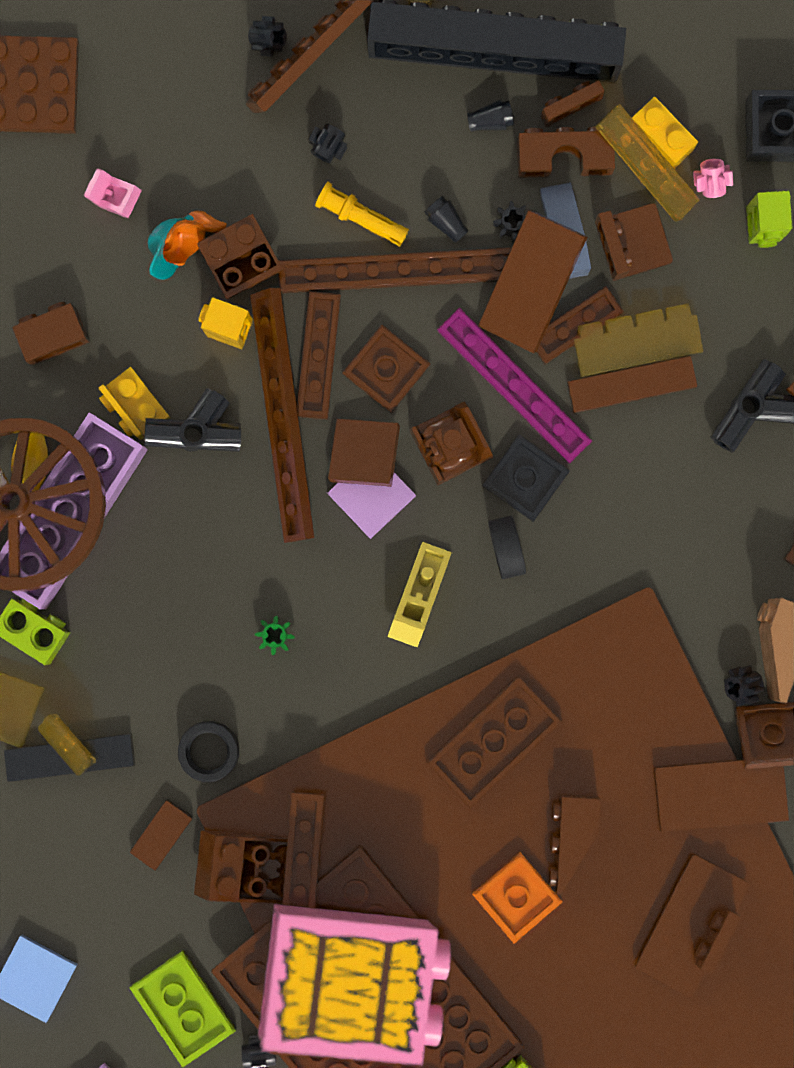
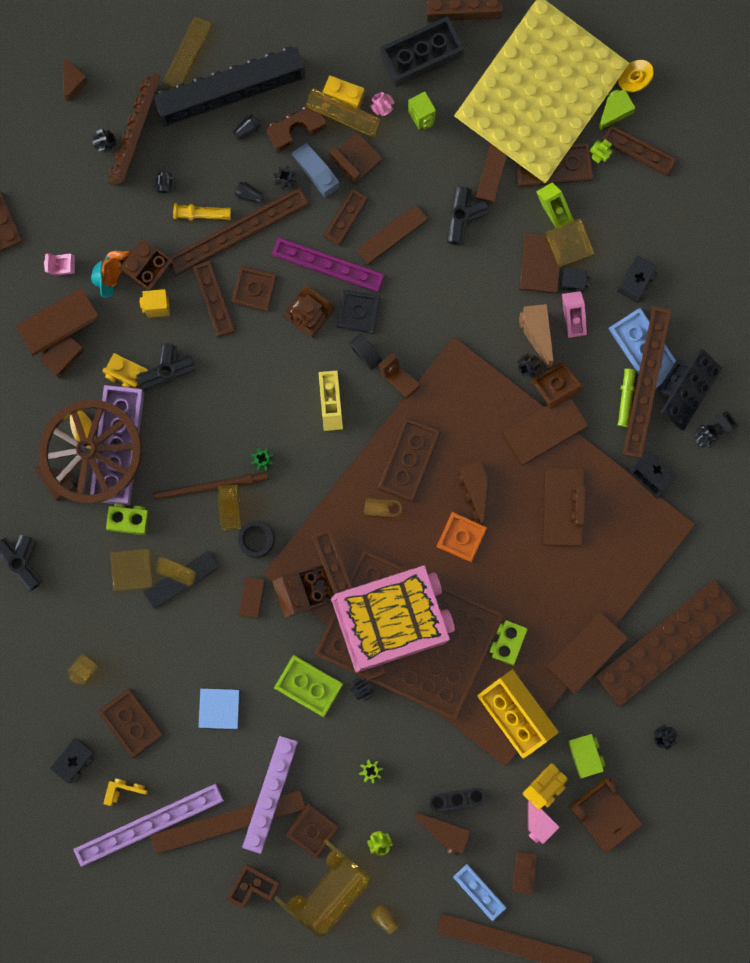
camera: 25 degrees left, 5 degrees down
(66, 280) = (57, 321): none -> reddish brown slope
(191, 683) = (229, 507): none -> clear yellow slope
(239, 653) = (247, 479): none -> reddish brown bar
(282, 415) = (209, 339): reddish brown plate -> none
(364, 452) = (263, 338): reddish brown tile -> none
(372, 505) = (278, 359): lavender tile -> none
(417, 796) = (380, 508): none -> clear yellow piece
(532, 281) = (311, 203): reddish brown tile -> none
(538, 607) = (397, 376): none -> reddish brown bracket
(582, 97) = (290, 94): reddish brown plate -> none
(632, 346) = (380, 214): clear yellow windscreen -> none

